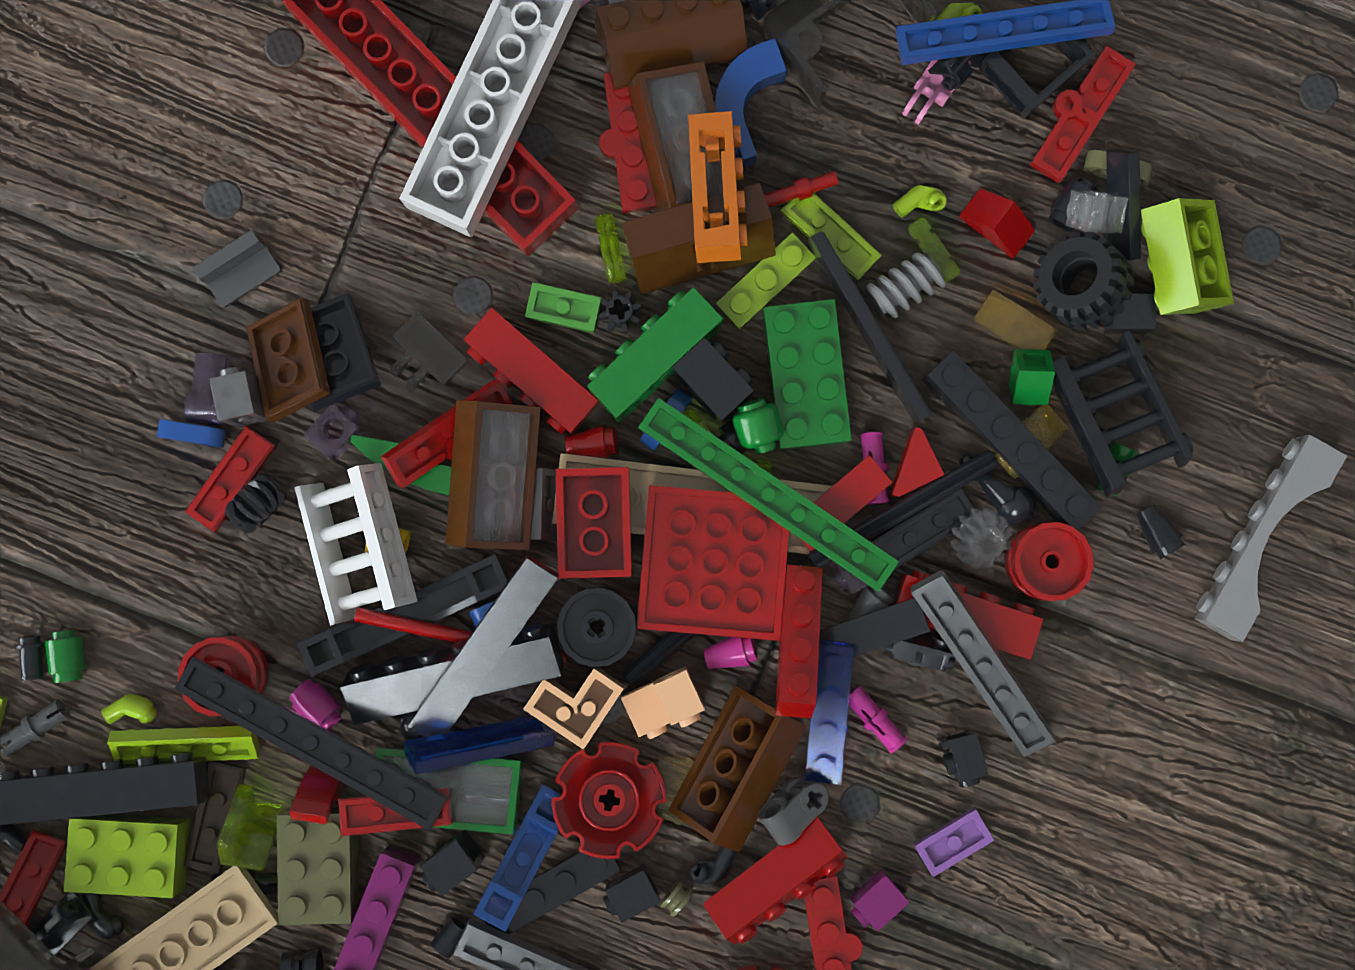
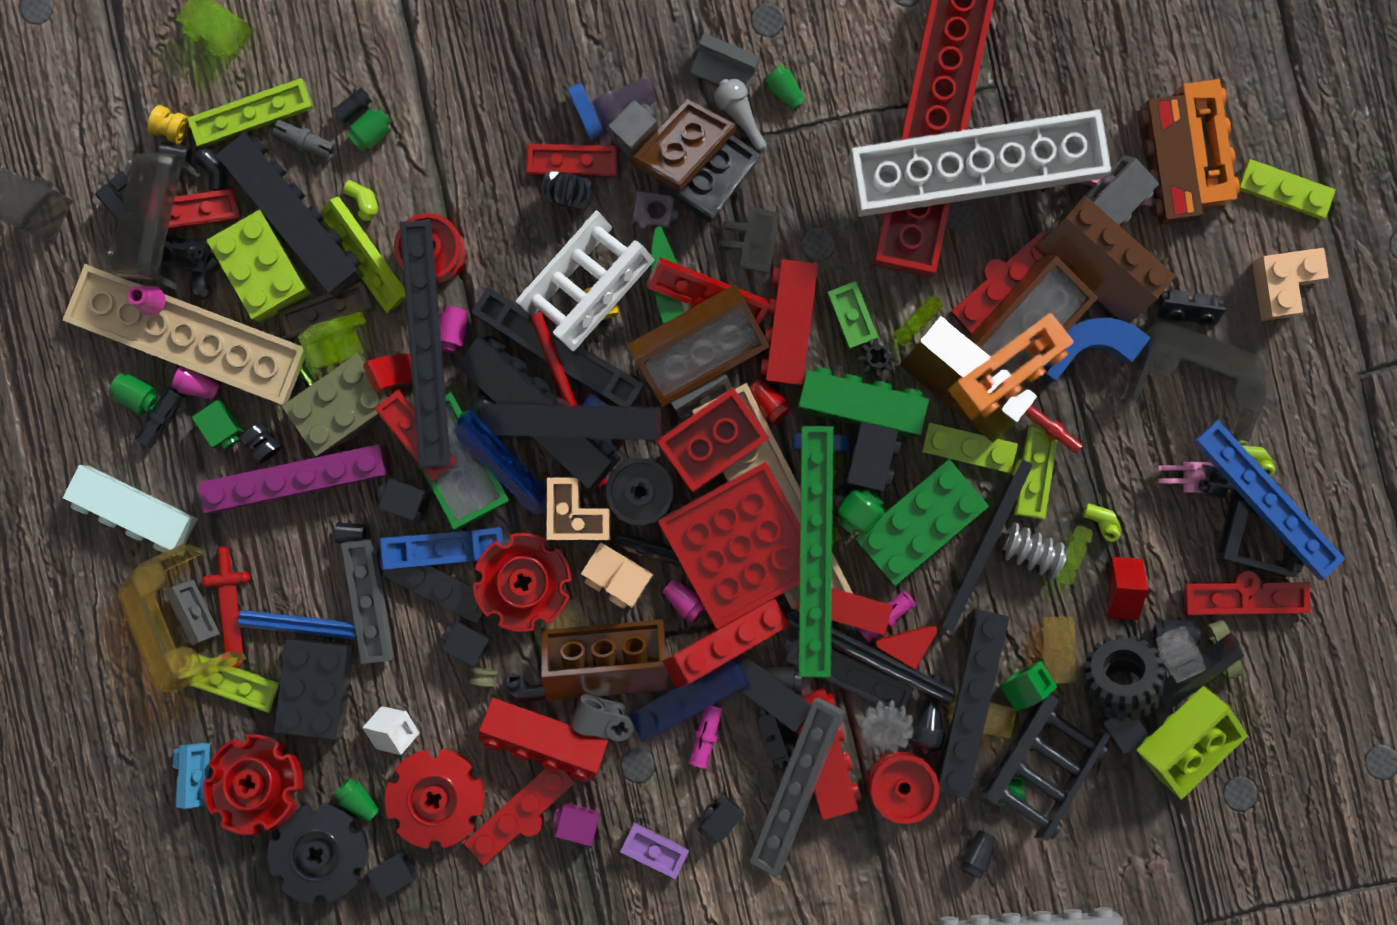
camera: 60 degrees right, 0 degrees up
(276, 283) = (733, 99): none -> light grey piece
(298, 226) = (784, 87): none -> green cone

